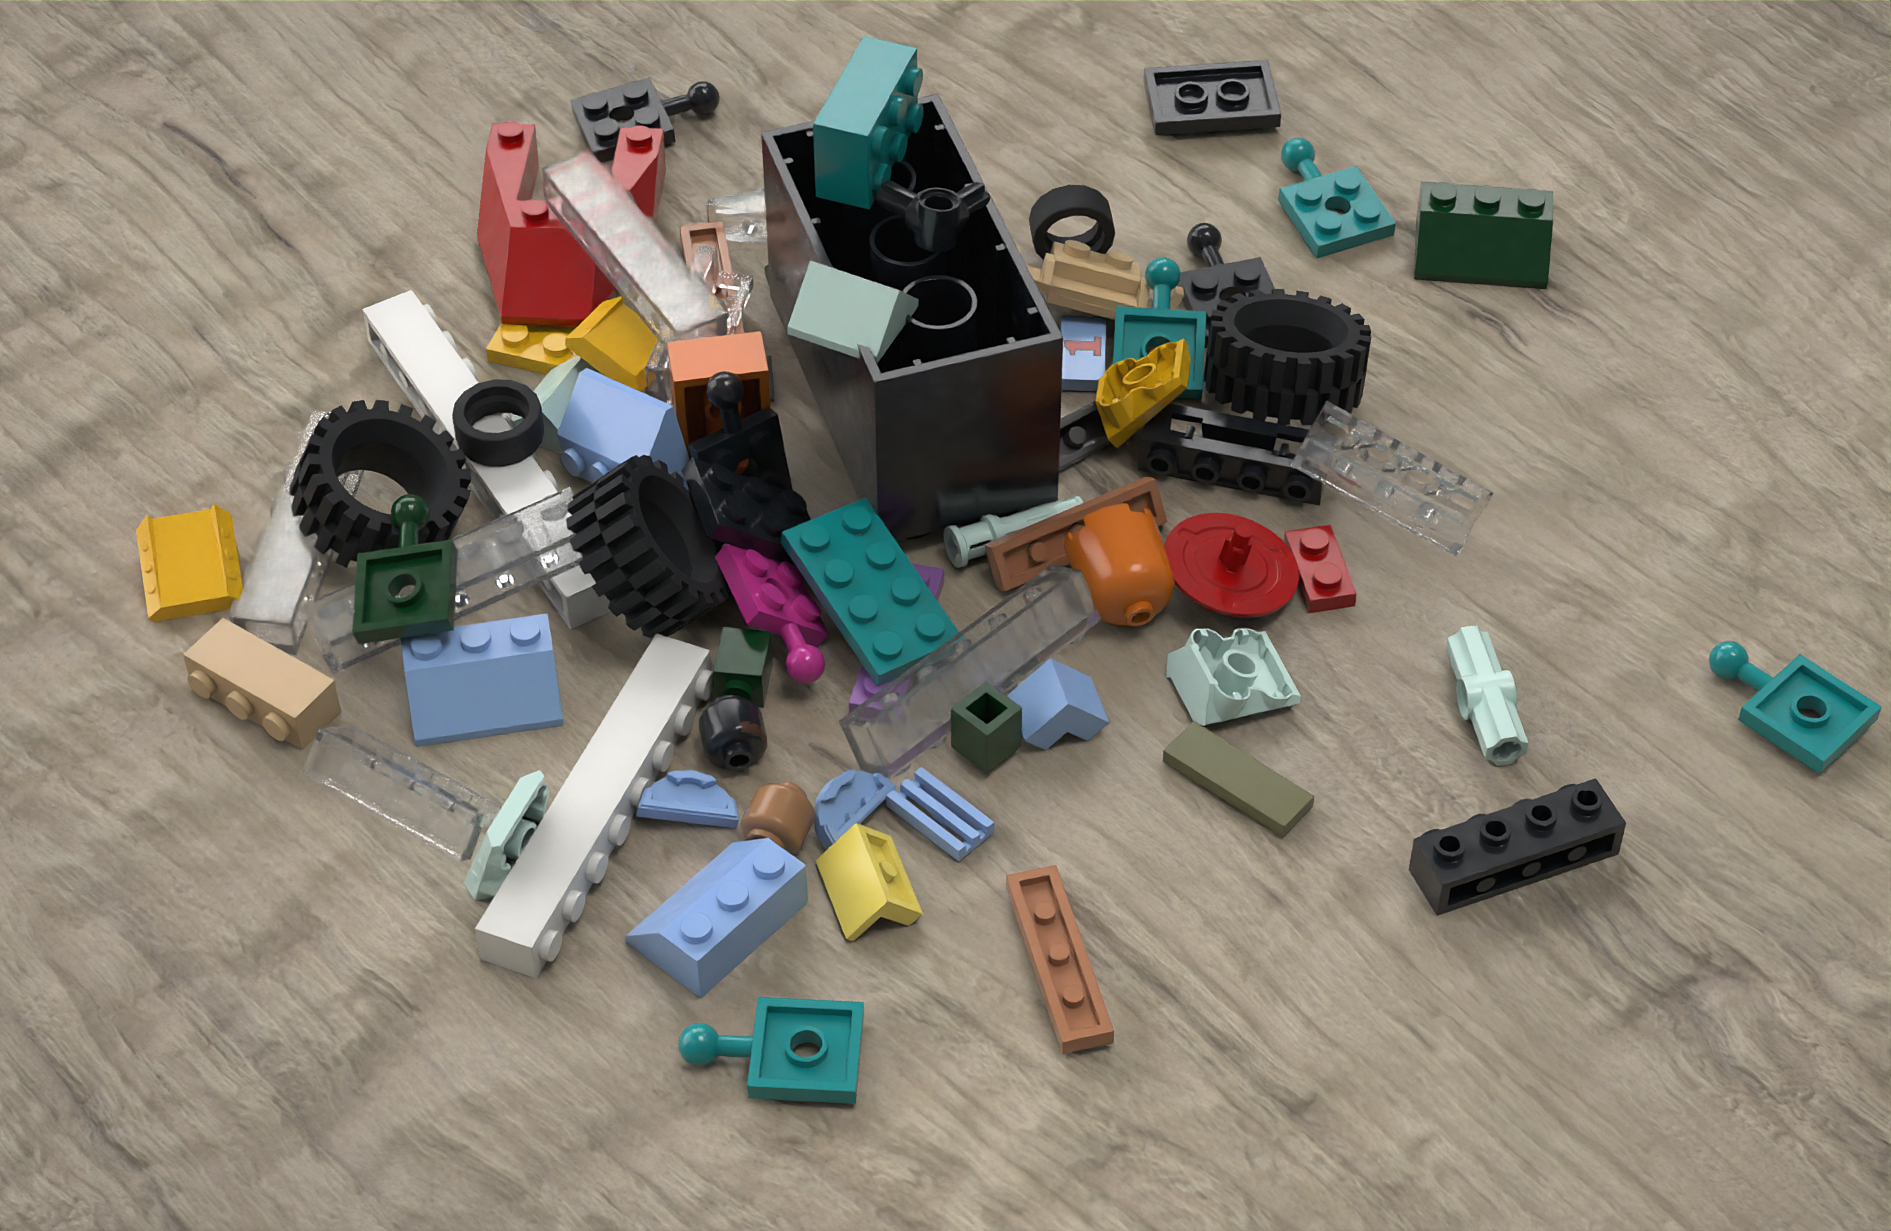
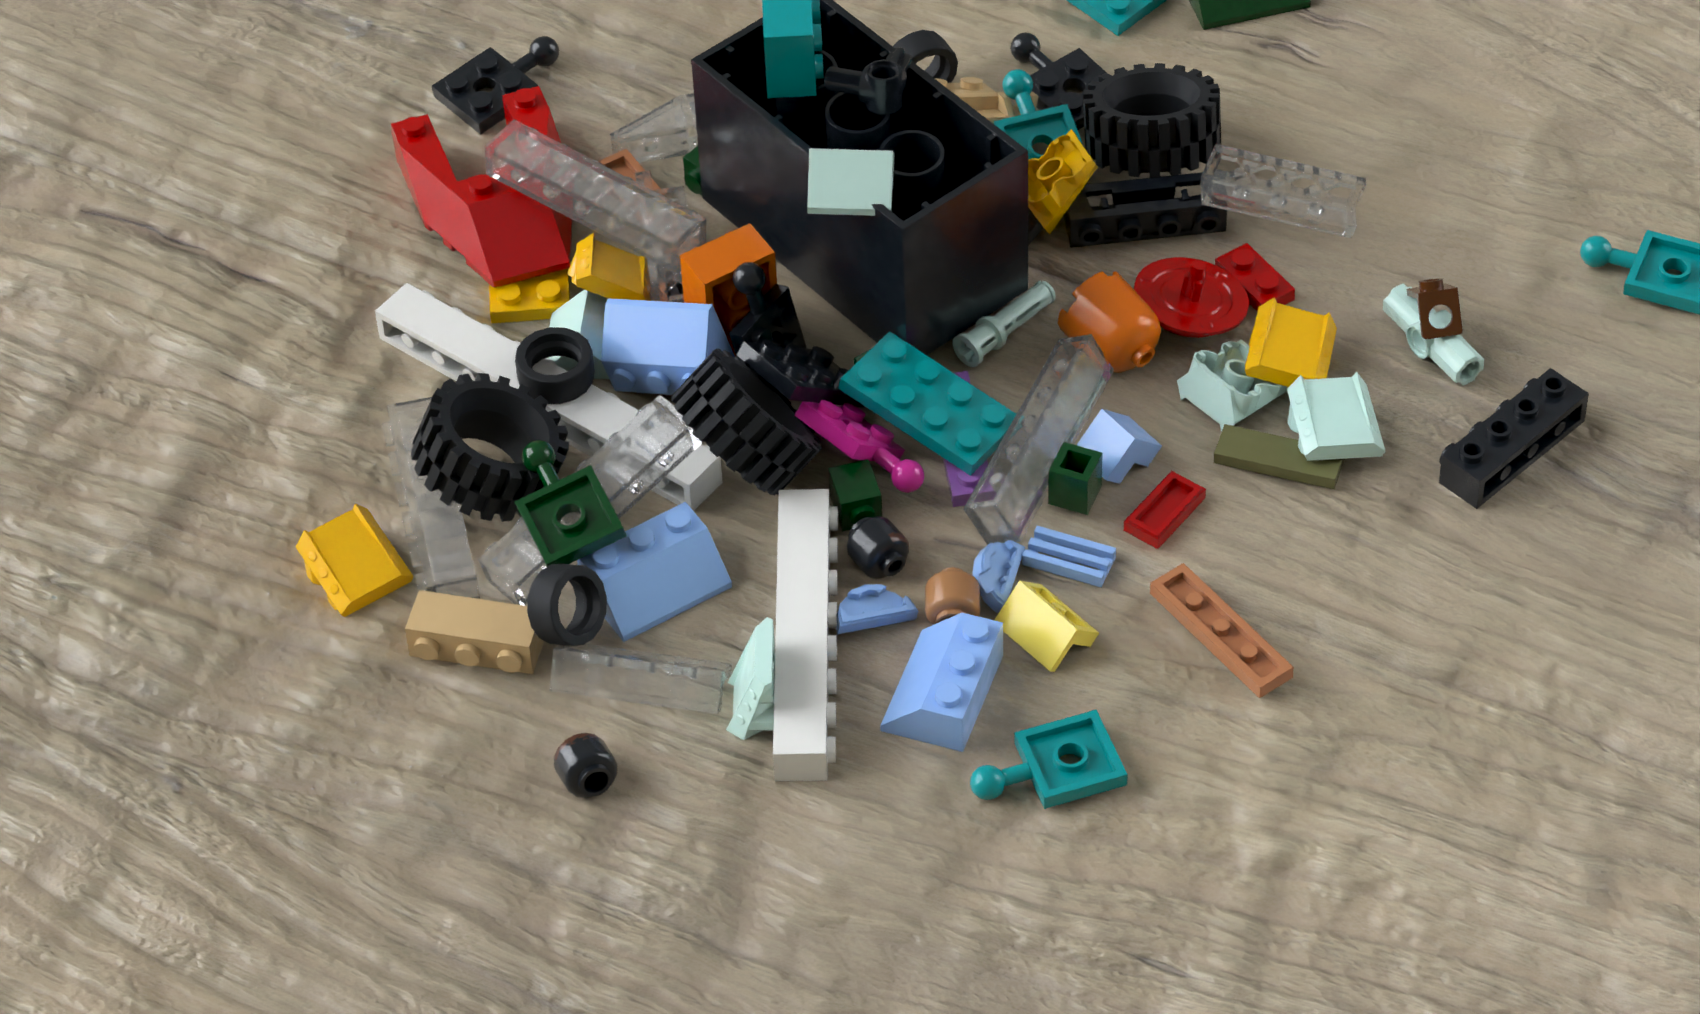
camera: 20 degrees left, 0 degrees up
(283, 870) = (585, 765): none -> black head
(382, 707) = (544, 601): none -> black tyre
(1034, 548) = (1037, 326): nougat plate -> none
(1076, 796) = (1164, 509): none -> red tile
(1311, 658) = (1289, 344): none -> yellow slope
(1317, 756) = (1334, 418): none -> light aqua slope
(1496, 647) = (1434, 293): none -> reddish brown bracket

